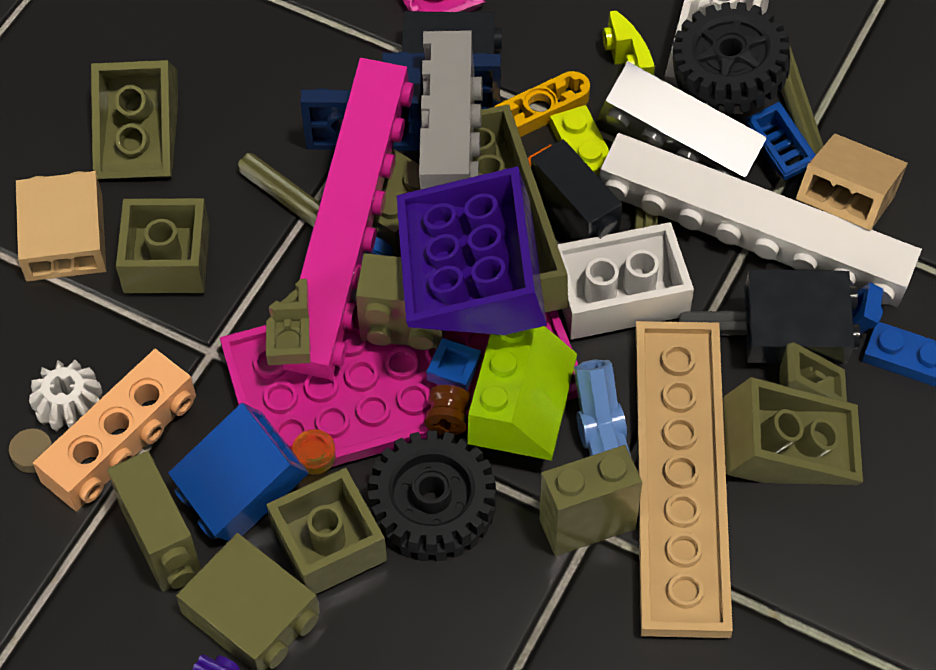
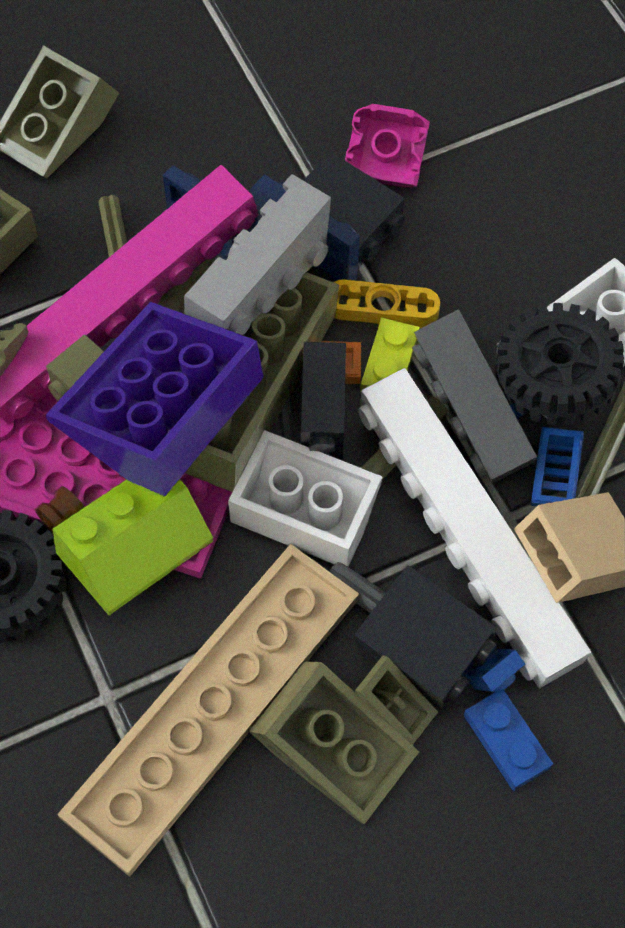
camera: 35 degrees right, 5 degrees up
(453, 364) = (96, 478): blue plate -> none
(590, 500) = (99, 671): olive brick -> none
(600, 415) = (182, 614): medium blue piece -> none
(626, 43) = (496, 301): neon yellow slope -> none

